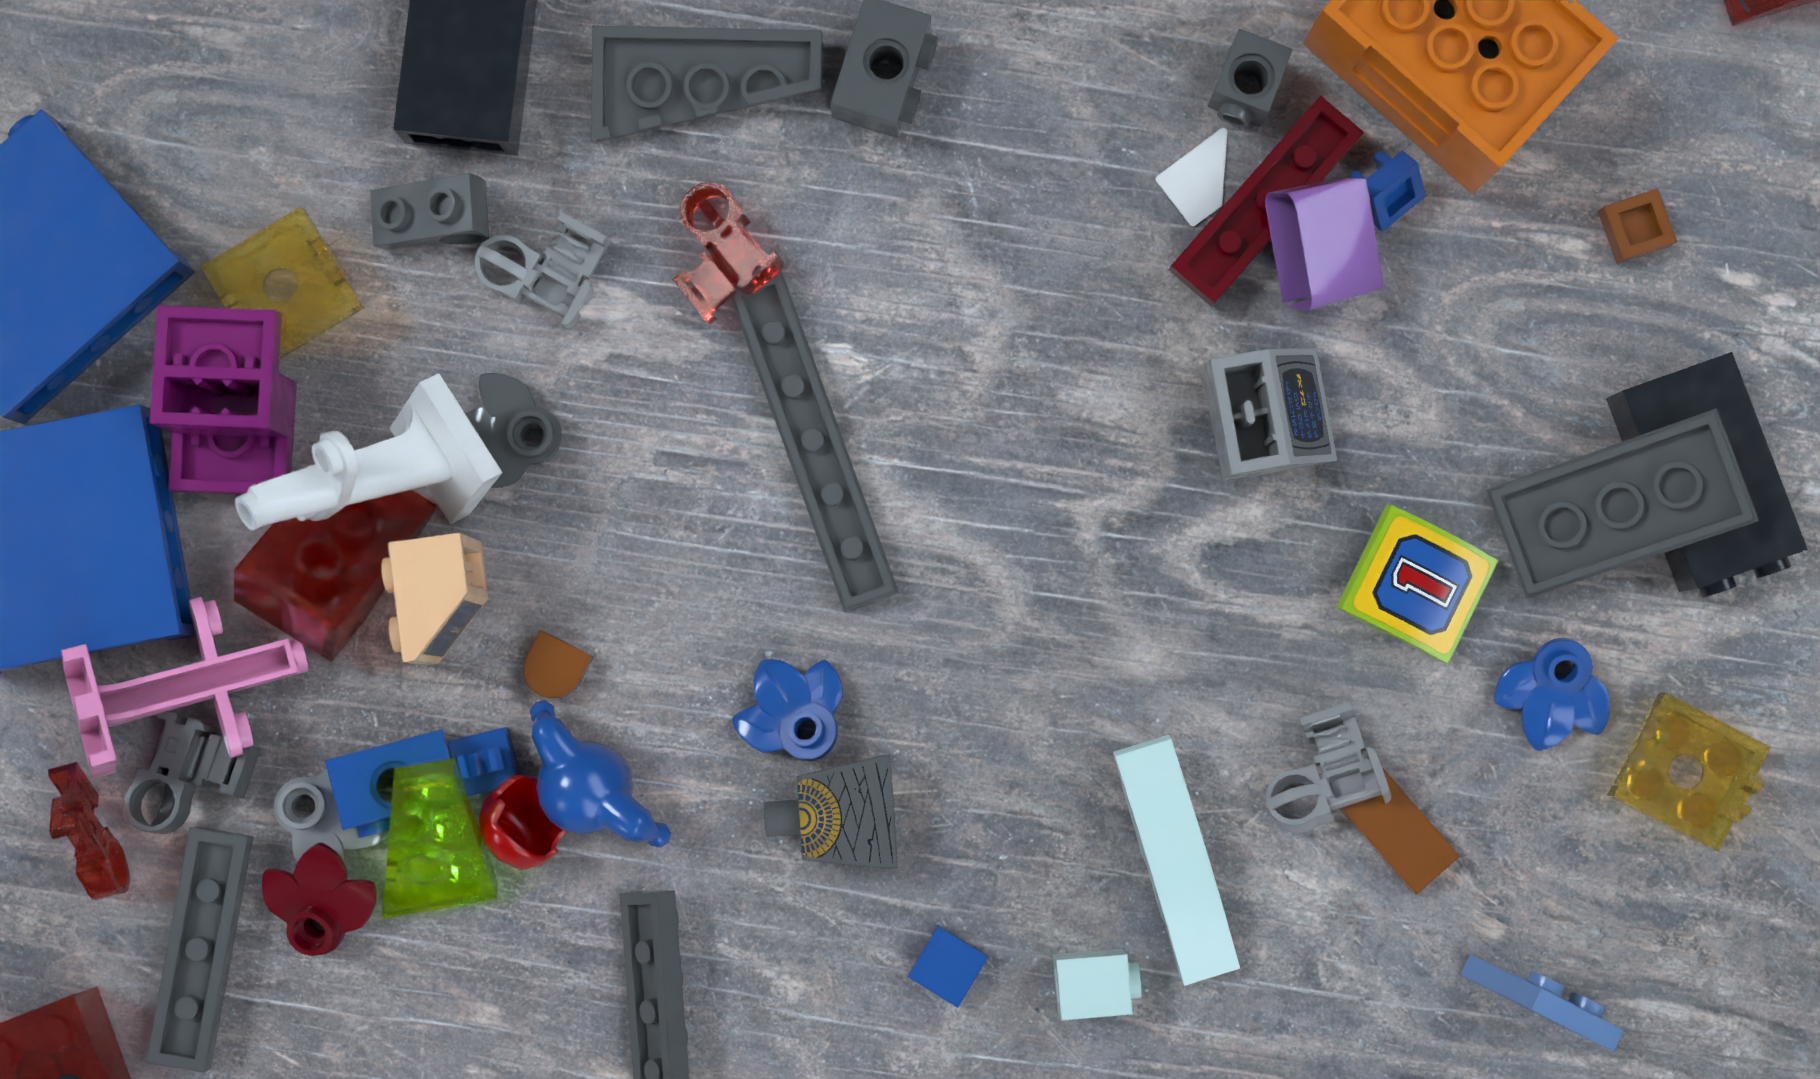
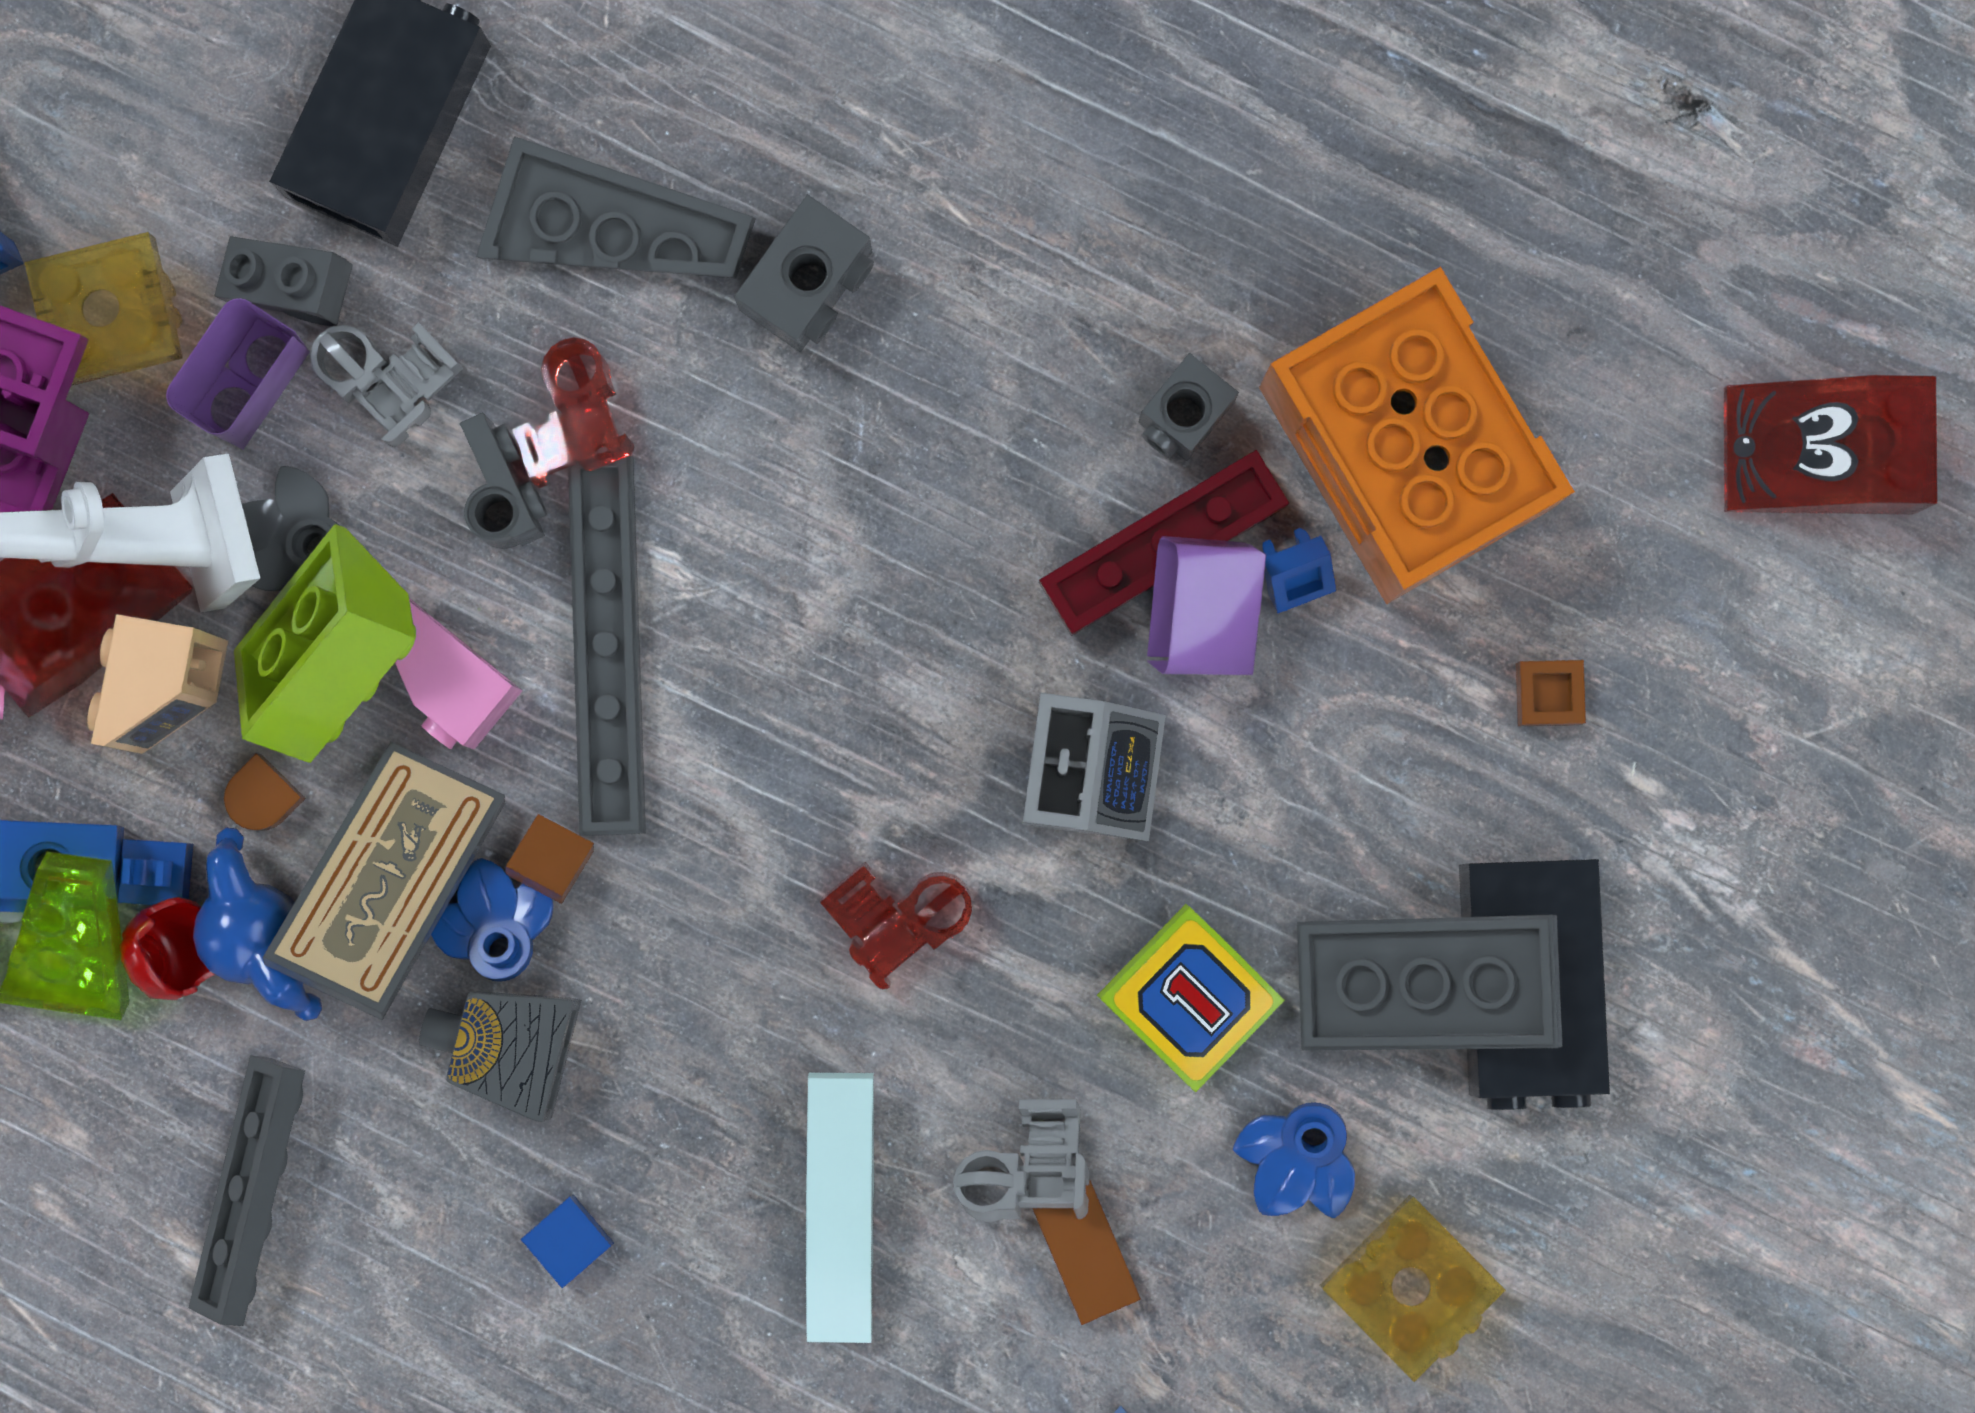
camera: 20 degrees right, 0 degrees up
(388, 318) = (205, 371): none -> medium lavender piece
(571, 518) = (321, 648): none -> lime slope
(664, 305) = (494, 453): none -> dark grey plate
(682, 509) = (453, 684): none -> bright pink slope
(692, 703) = (384, 881): none -> tile
(825, 640) = (549, 858): none -> dark orange tile
(1095, 984) = (712, 1310): light aqua brick -> none
(1136, 611) = (884, 928): none -> clear red piece
(1197, 179) = (1102, 495): white sticker -> none

